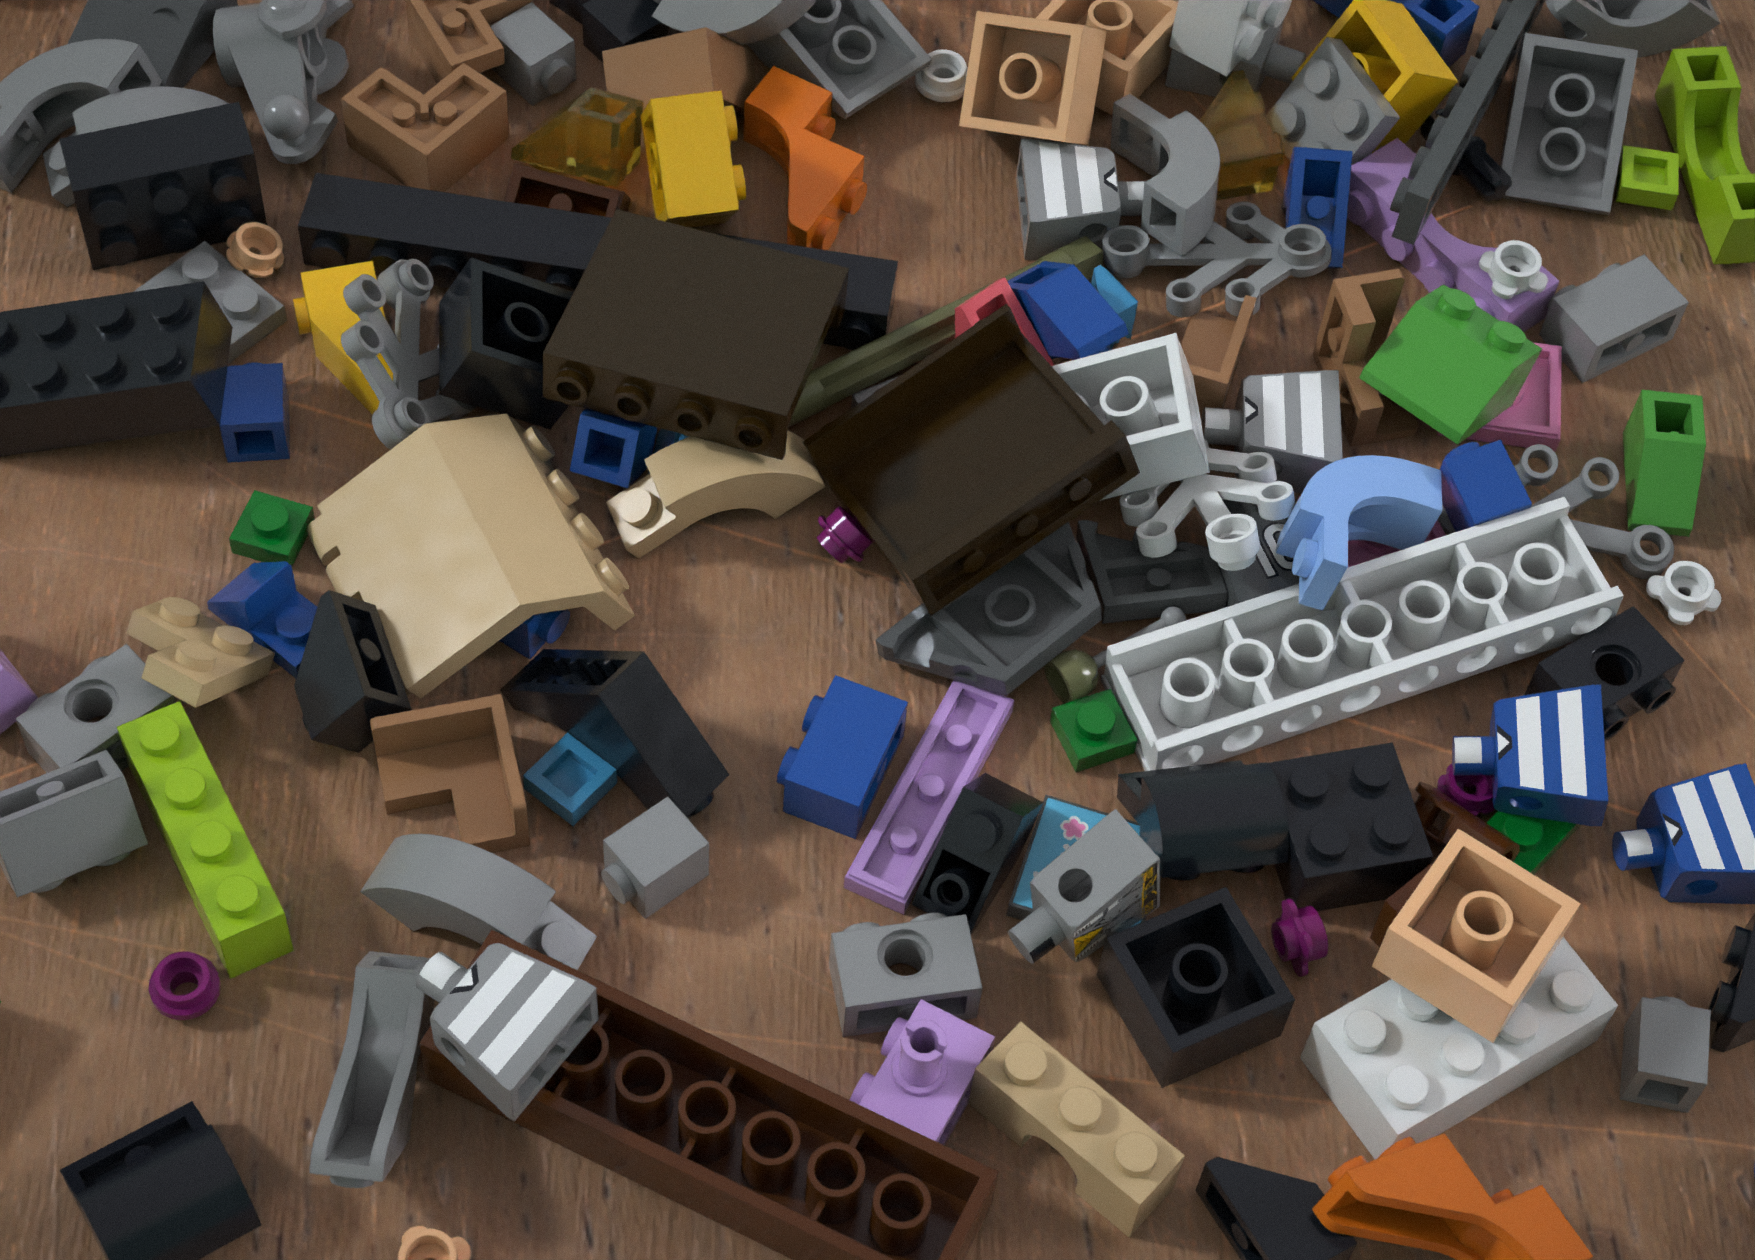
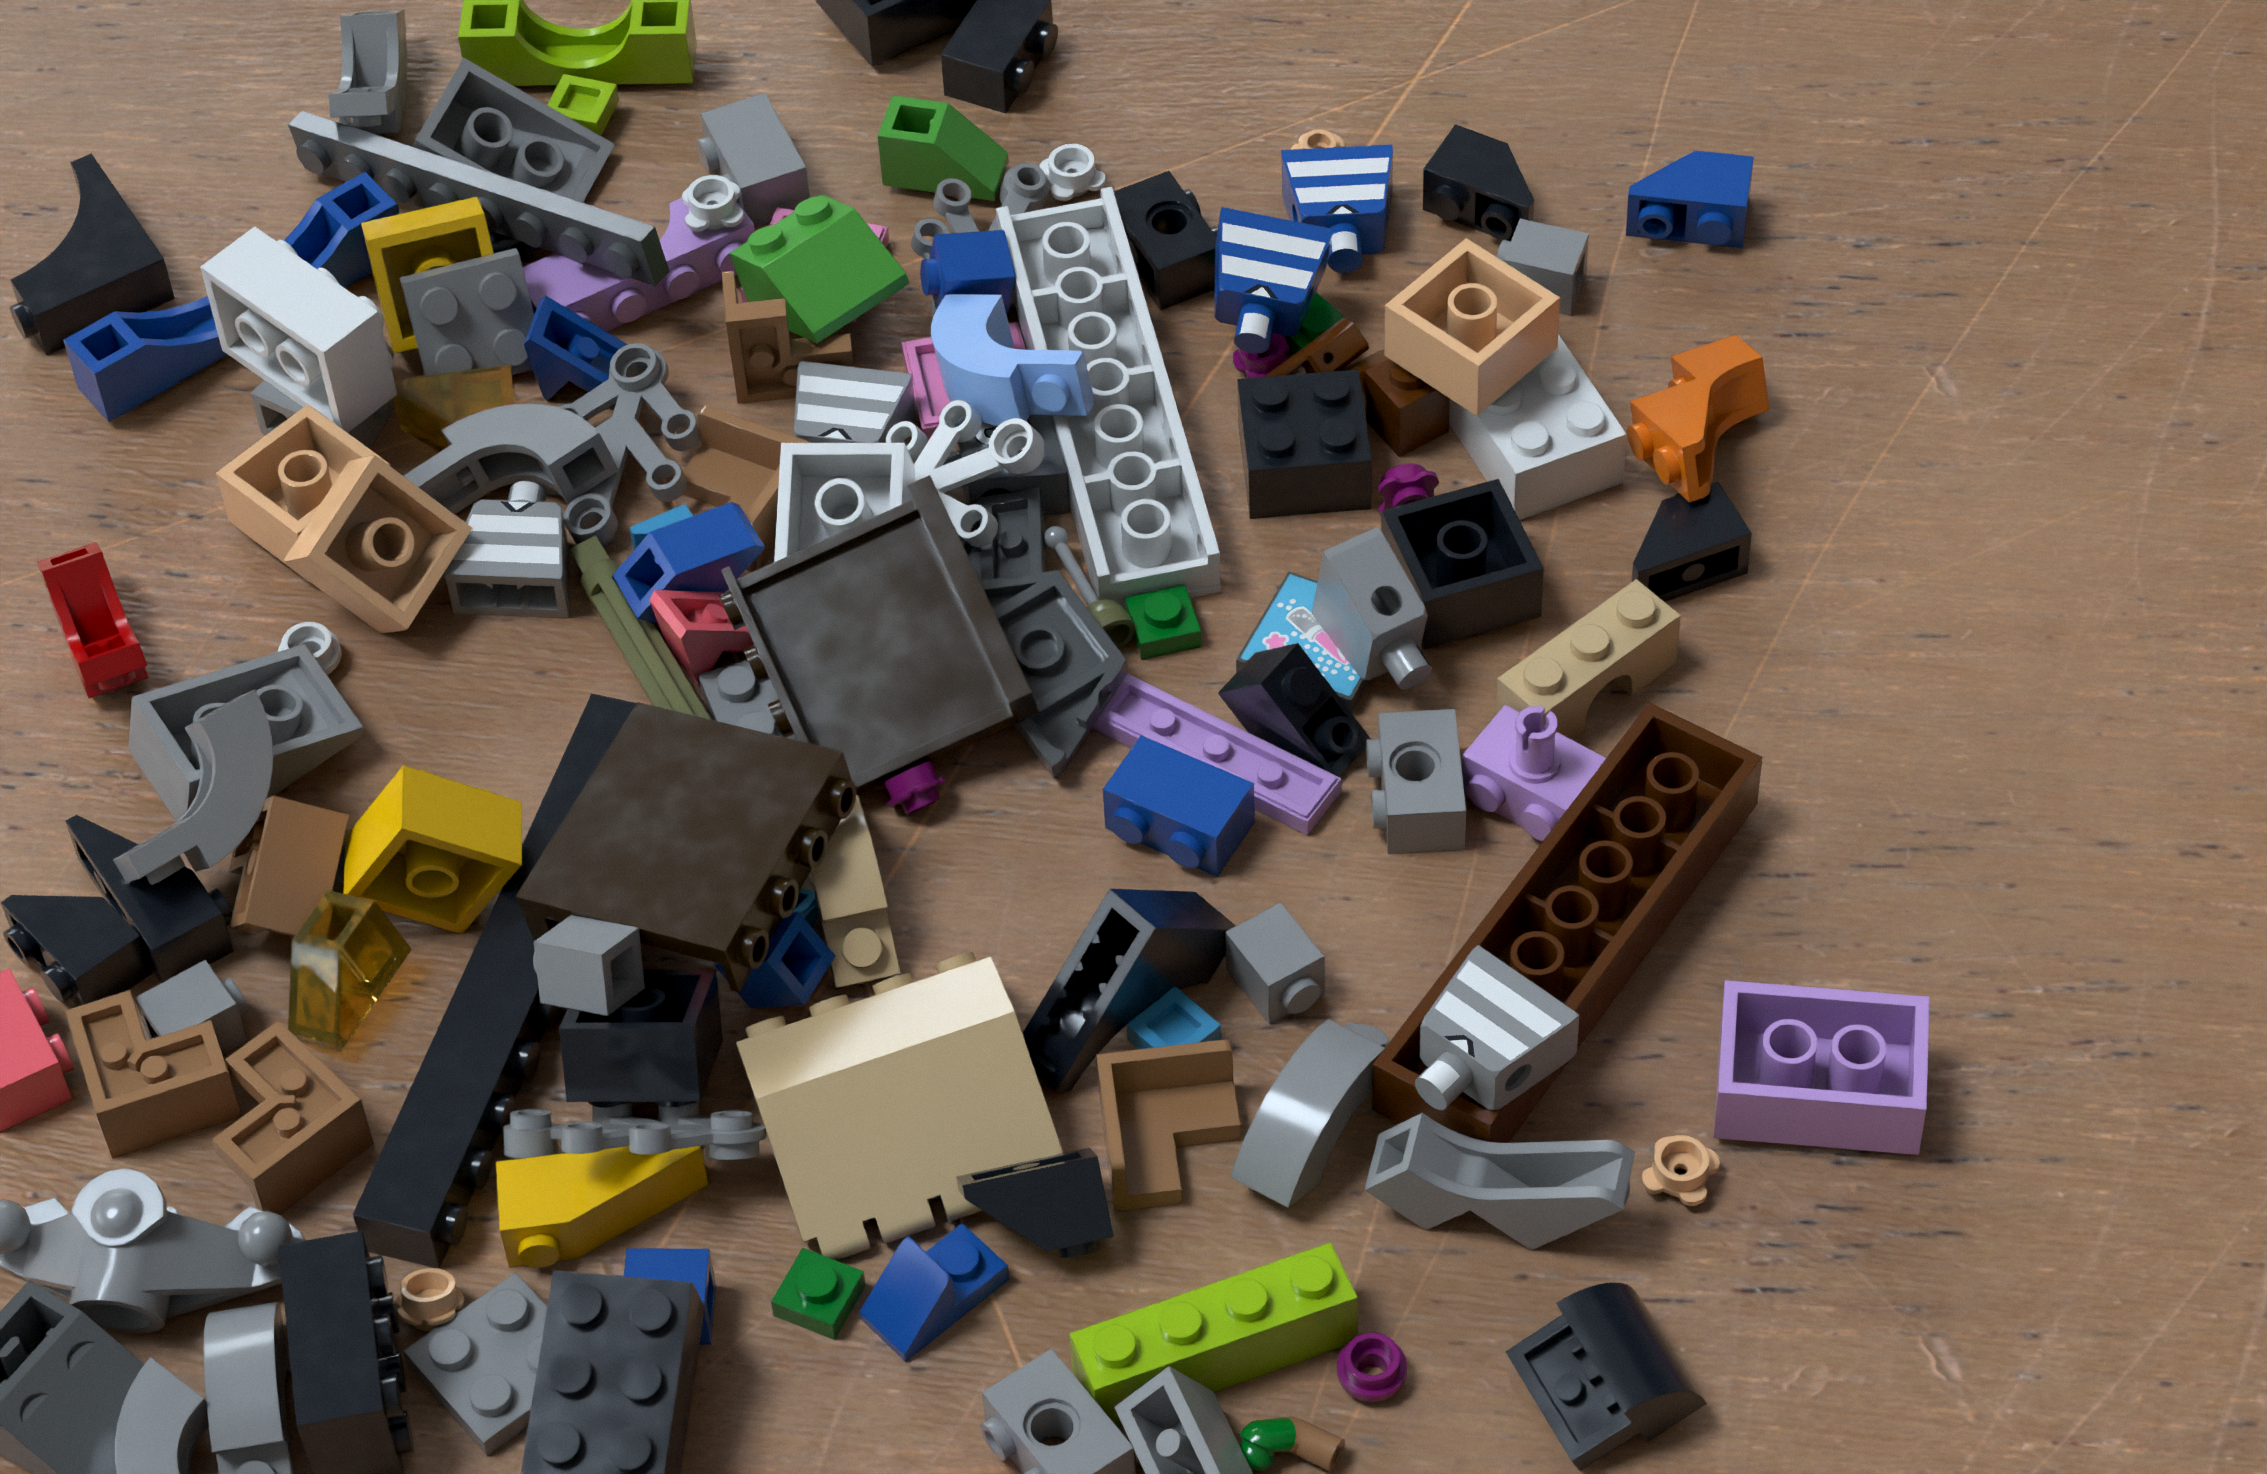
camera: 75 degrees left, 5 degrees down
(108, 919) = (1293, 1436): none -> arm
(195, 653) = (988, 1329): tan plate -> none
(545, 272) = (589, 965): none -> light grey brick
(559, 192) = (411, 1011): reddish brown slope -> none
(824, 179) = (352, 774): orange arch -> none
(1209, 817) = (1279, 530): black brick -> none

